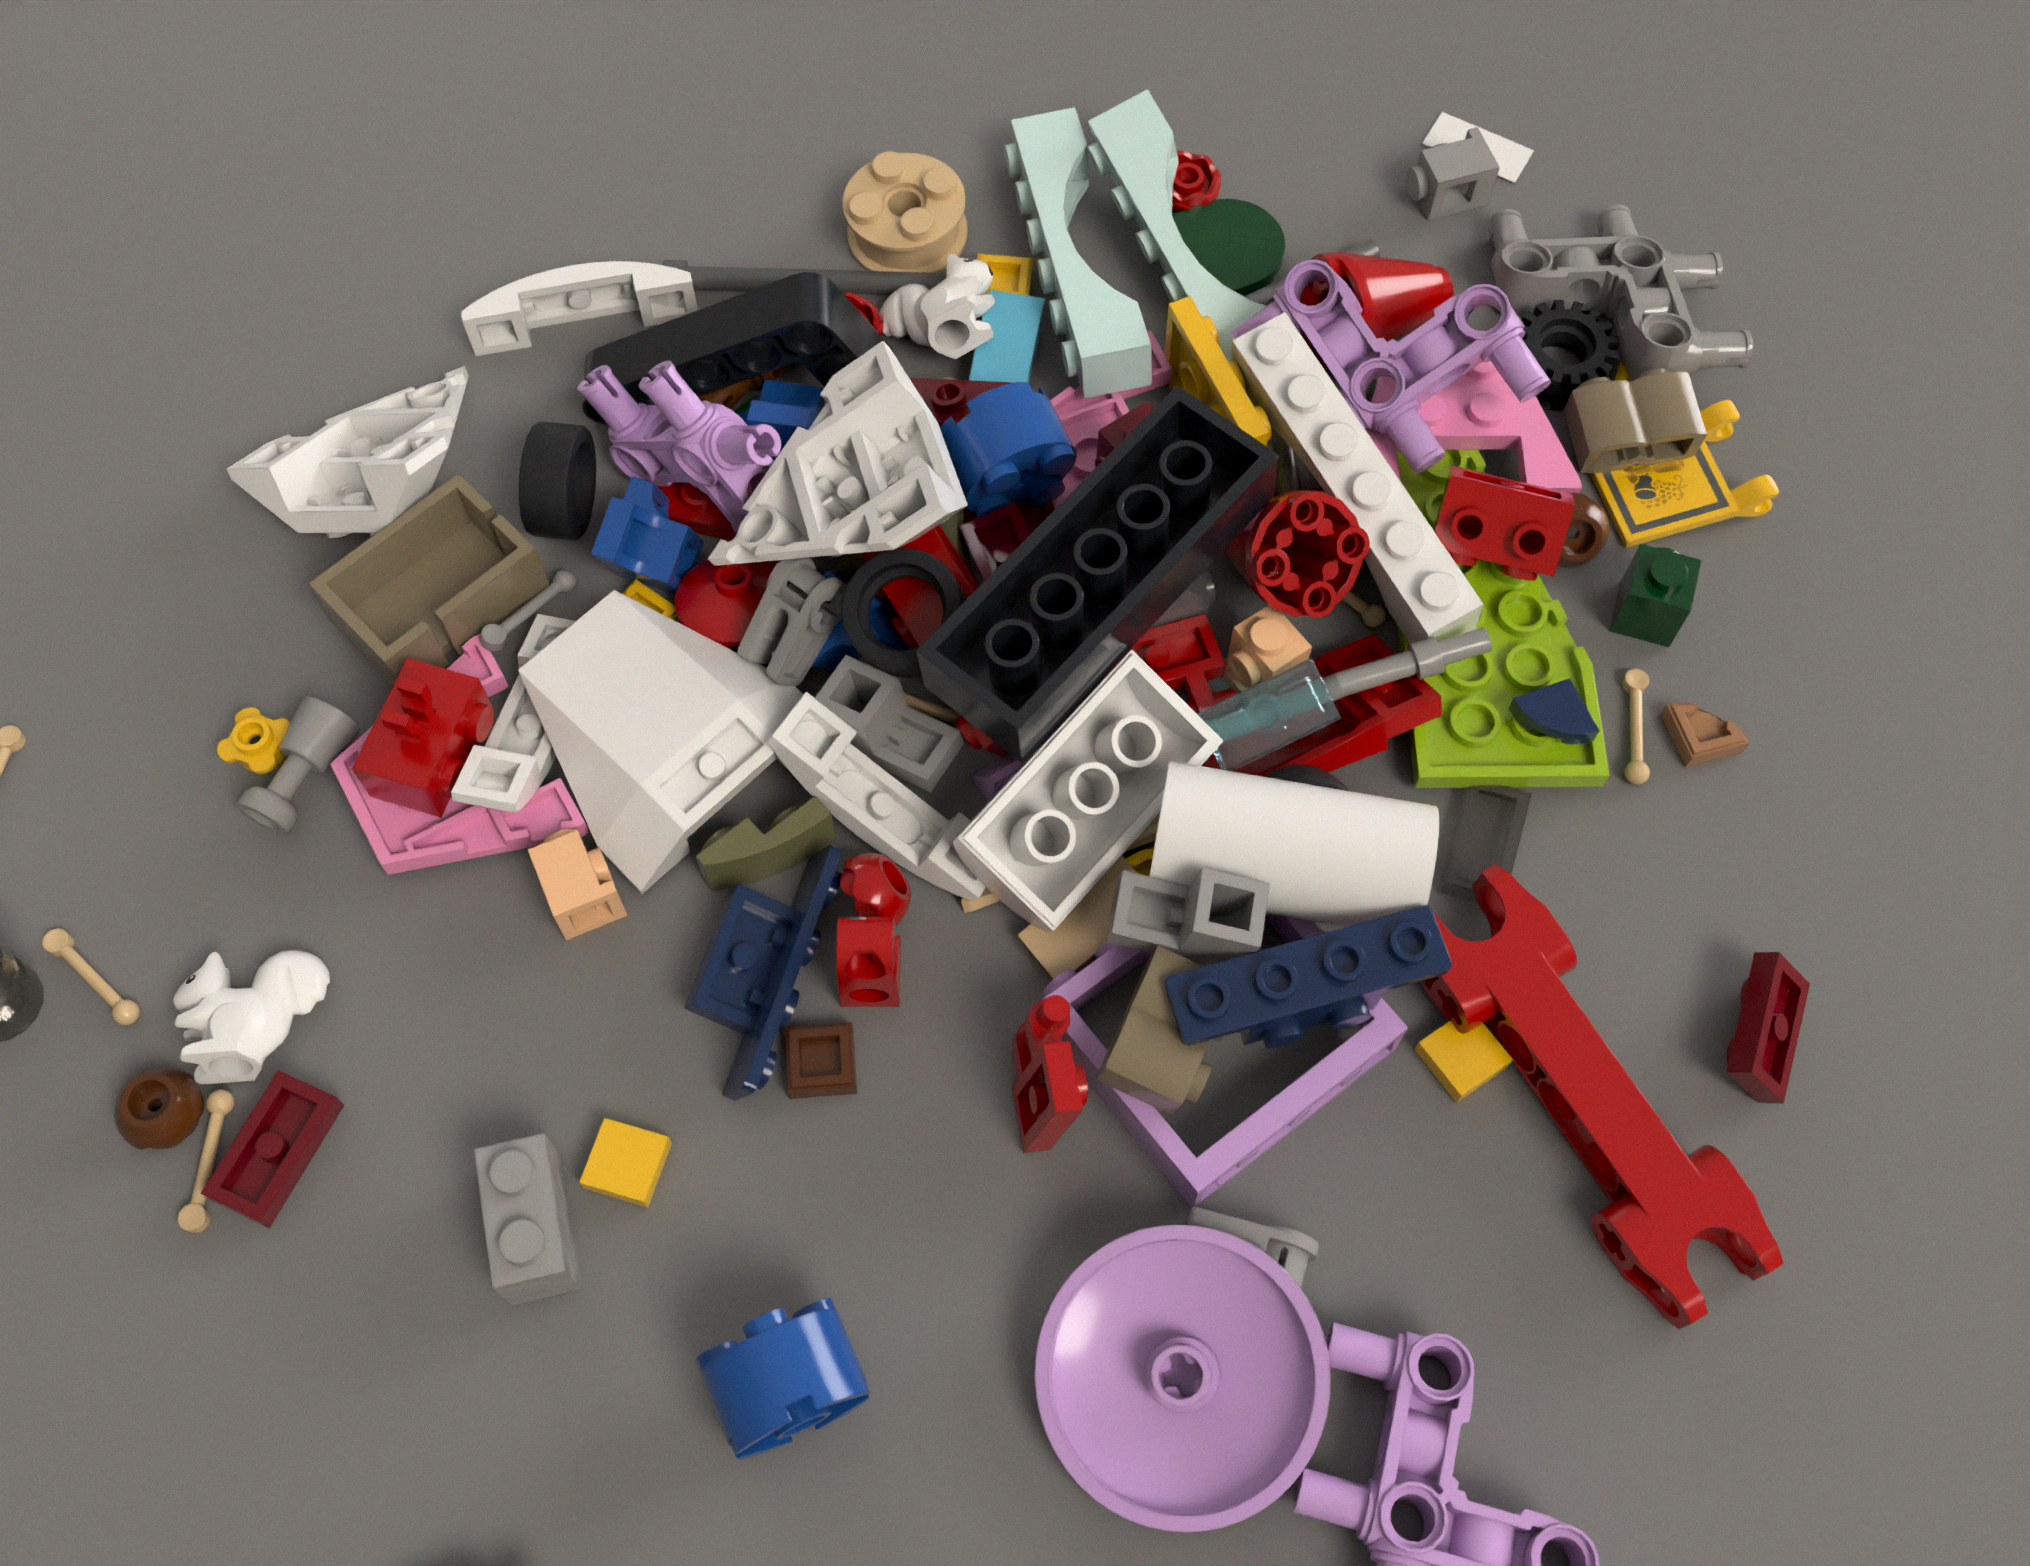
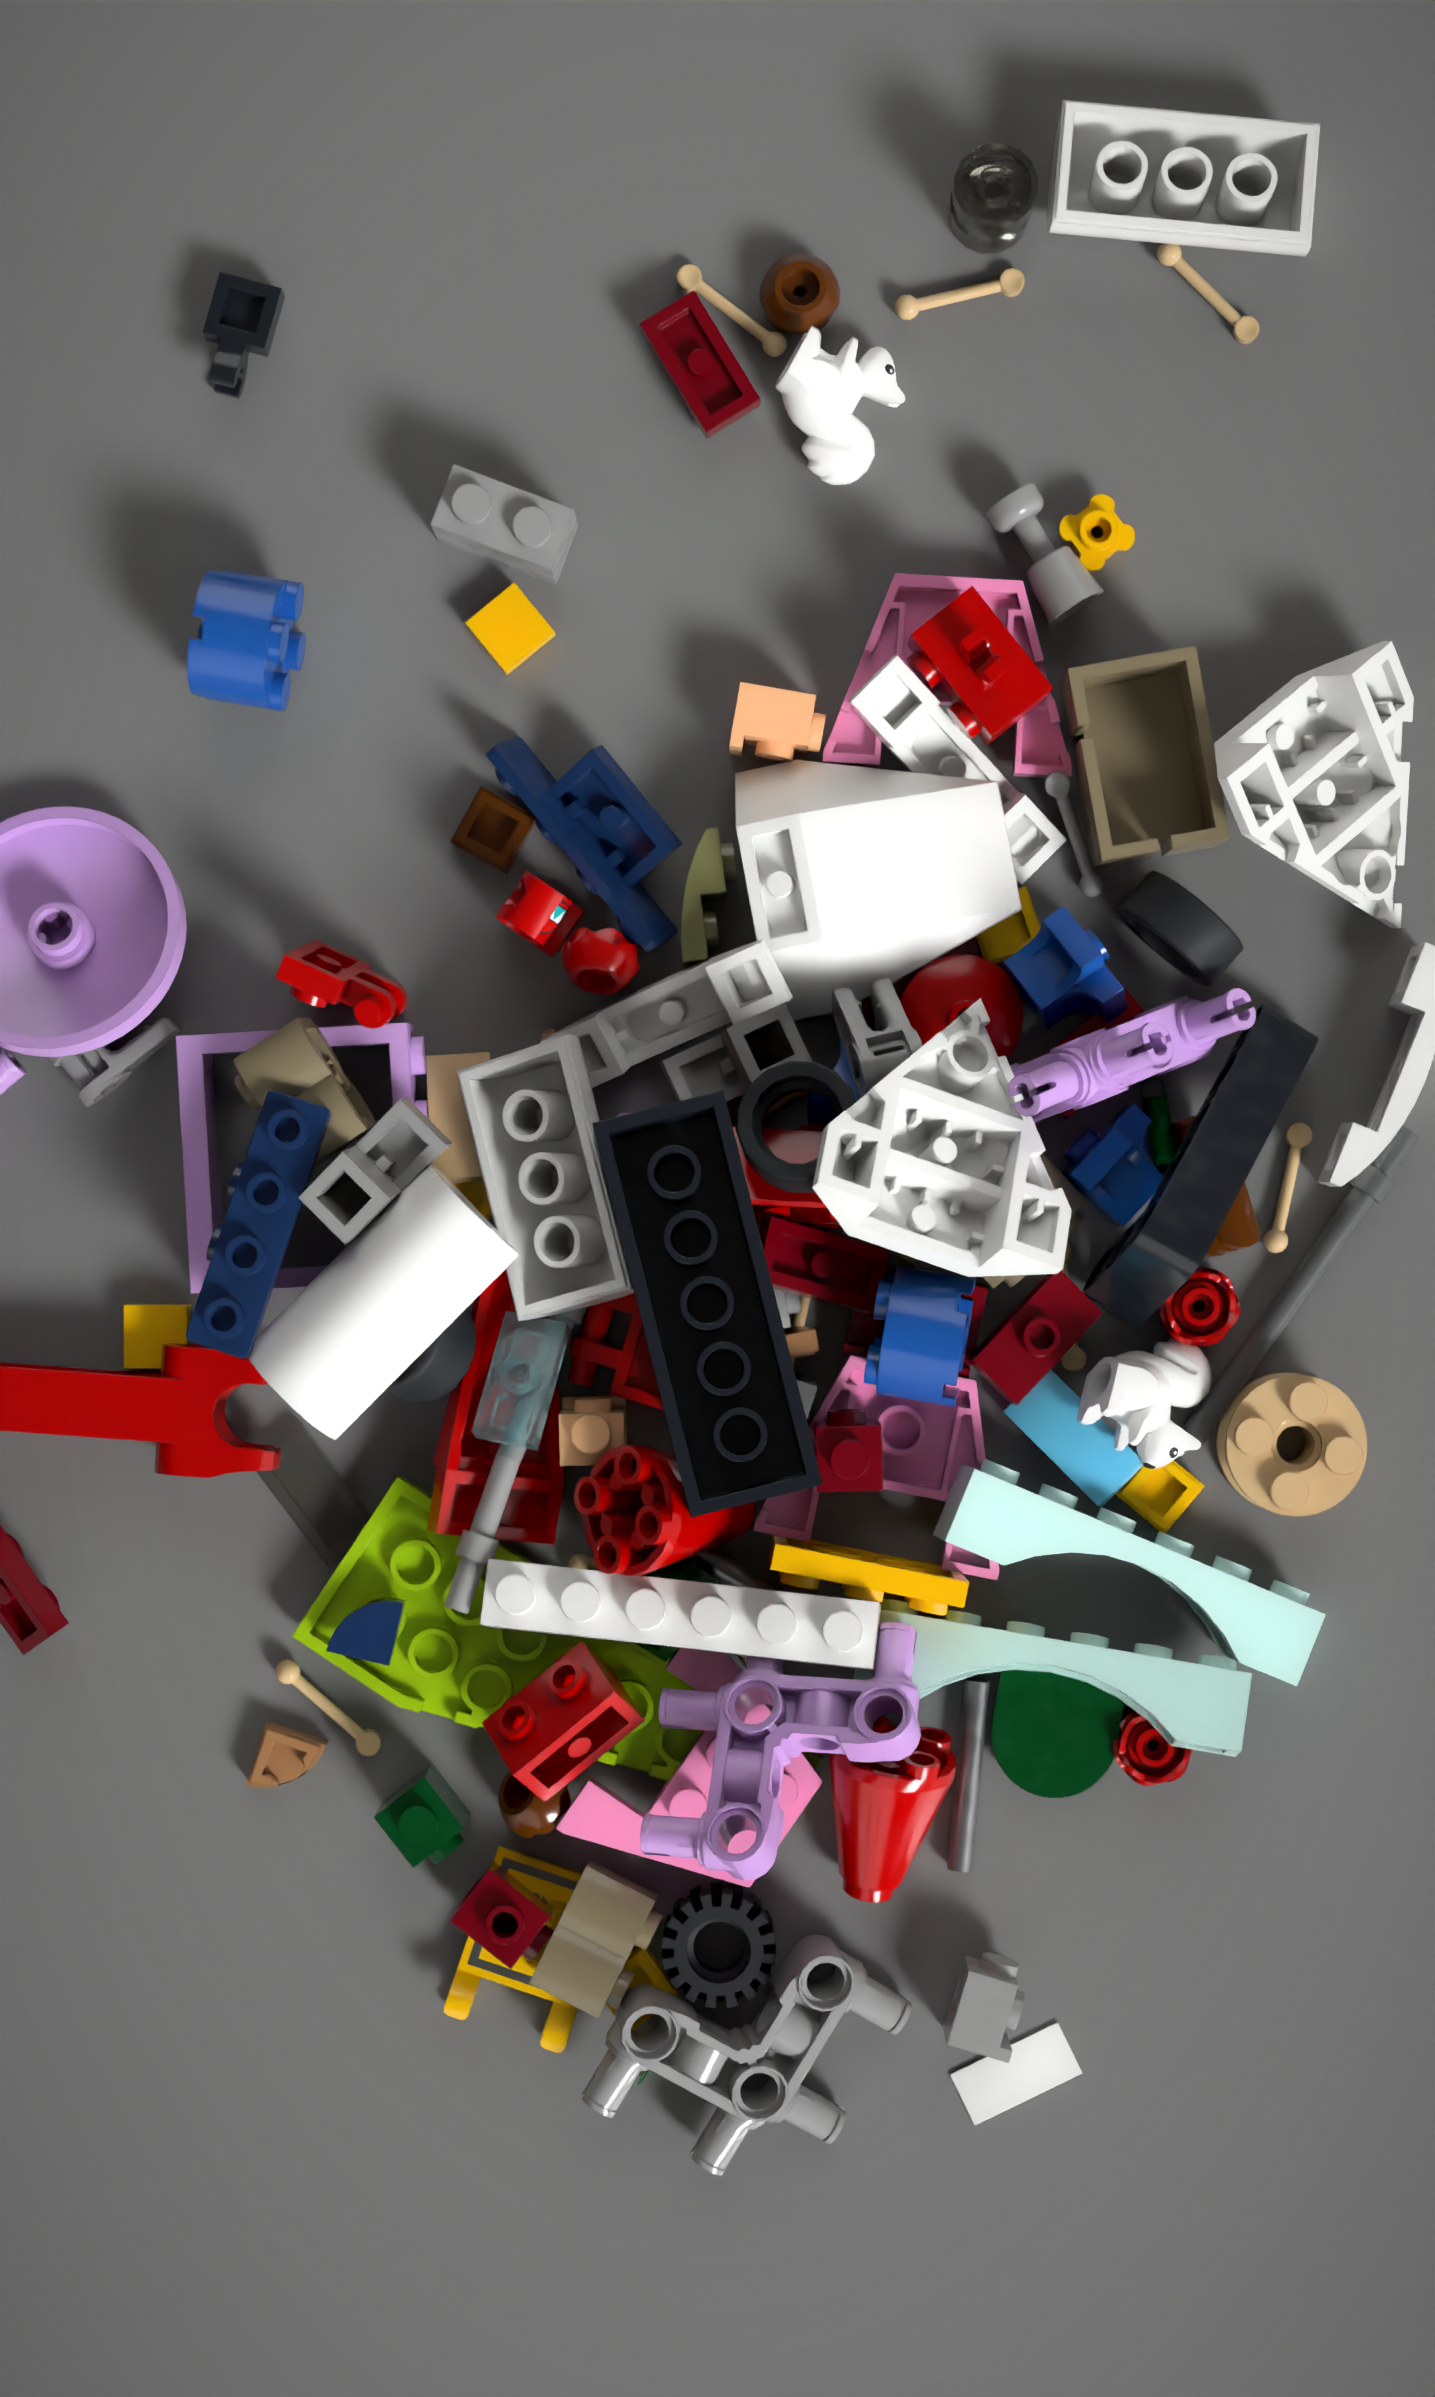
camera: 125 degrees right, 25 degrees up
(1675, 492) = (504, 1916): none -> dark red brick

